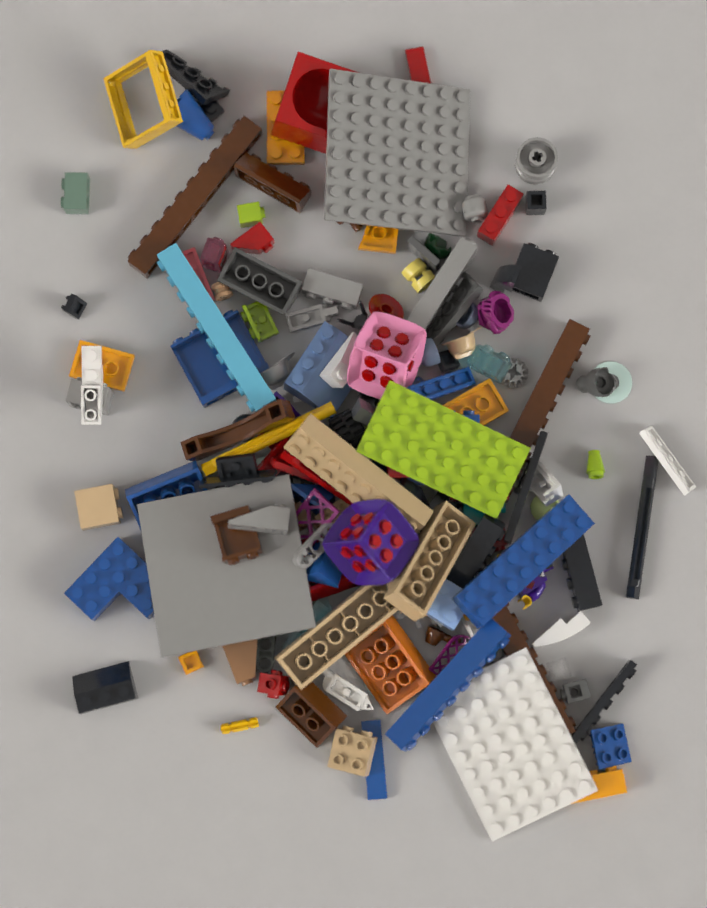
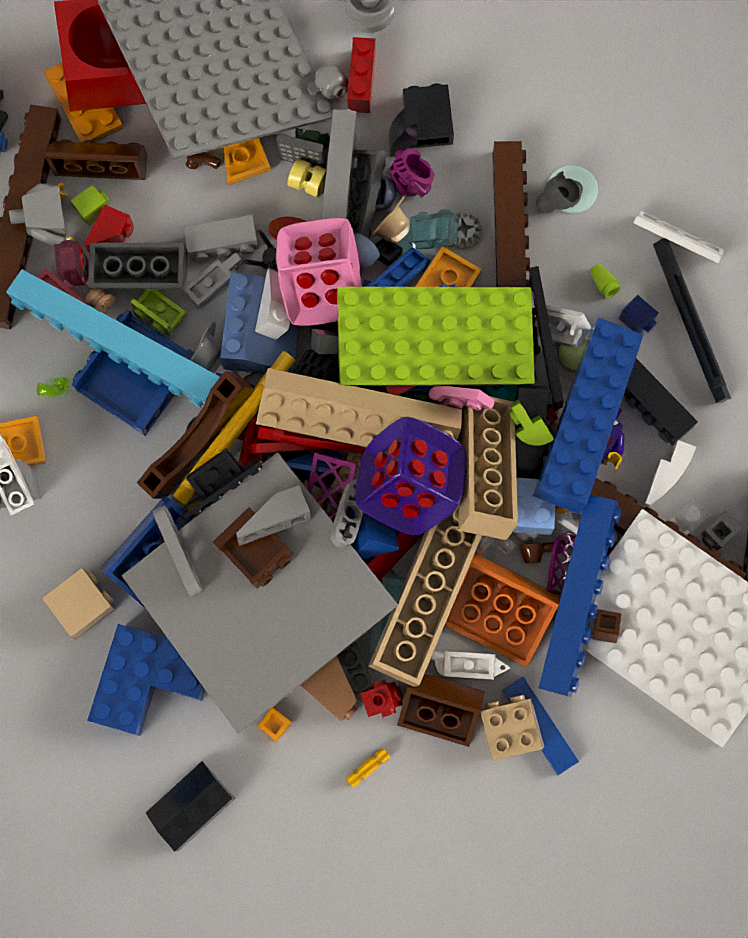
camera: 25 degrees left, 5 degrees down
(155, 341) = (53, 390): none -> clear neon green arm
(184, 508) = (177, 550): none -> light grey beam
(212, 207) = (42, 213): none -> light grey torso
(435, 502) = (461, 397): none -> bright pink hinge
(456, 716) = (606, 626): none -> reddish brown slope
(475, 552) = (532, 431): none -> lime brick
(535, 203) = (392, 43): black brick -> none
(605, 504) = (639, 315): none -> clear blue brick

